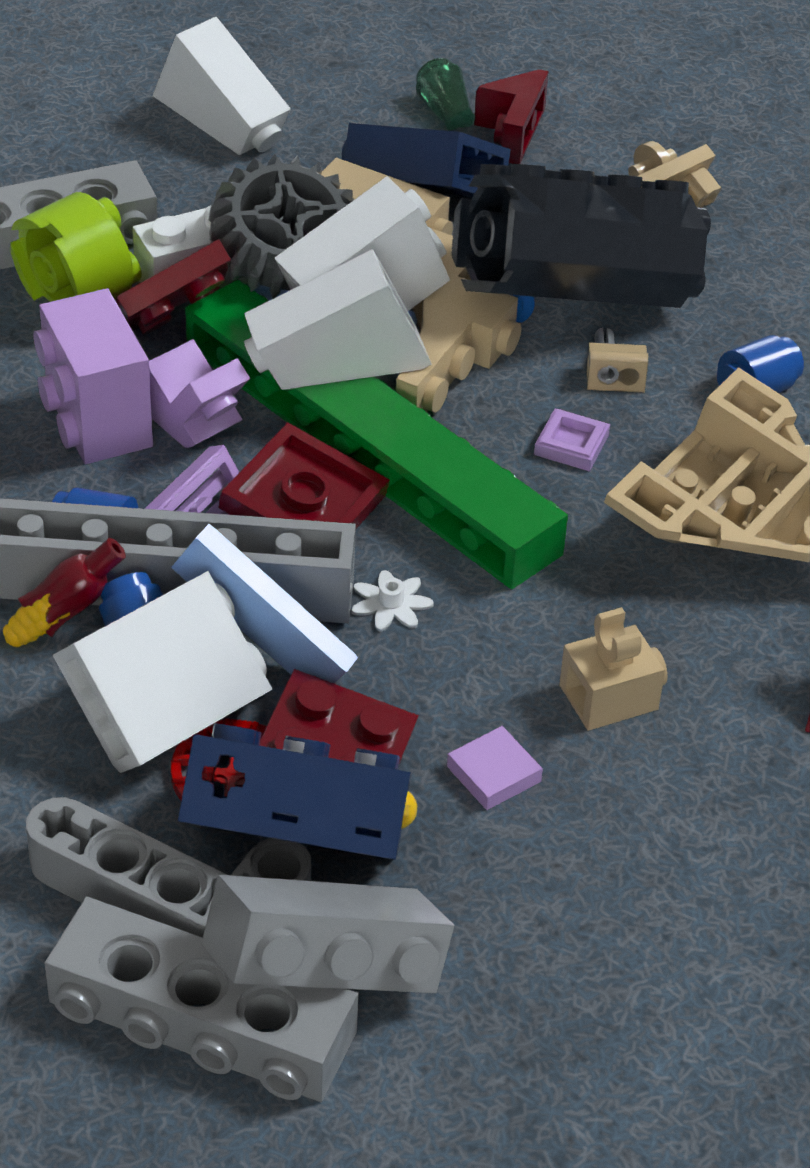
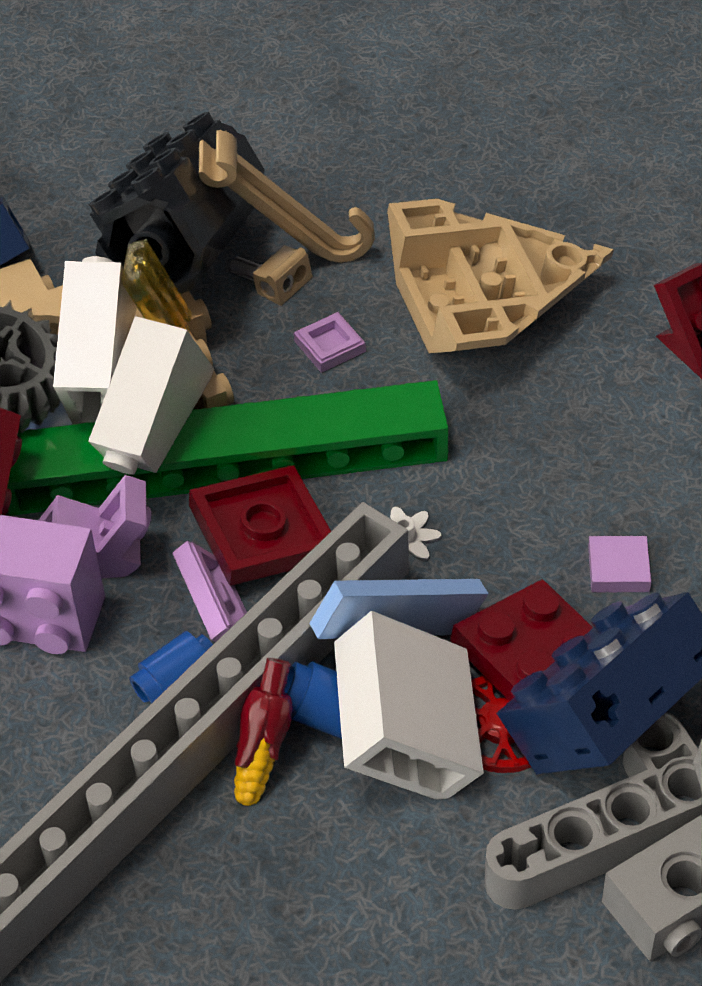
camera: 50 degrees left, 5 degrees up
(452, 267) = (152, 287): none -> clear yellow tile
(612, 673) = (595, 447): tan brick -> none
(616, 215) = (226, 168): none -> tan piece
(656, 163) = (118, 135): tan hips -> none
(770, 360) = (358, 189): blue brick -> none

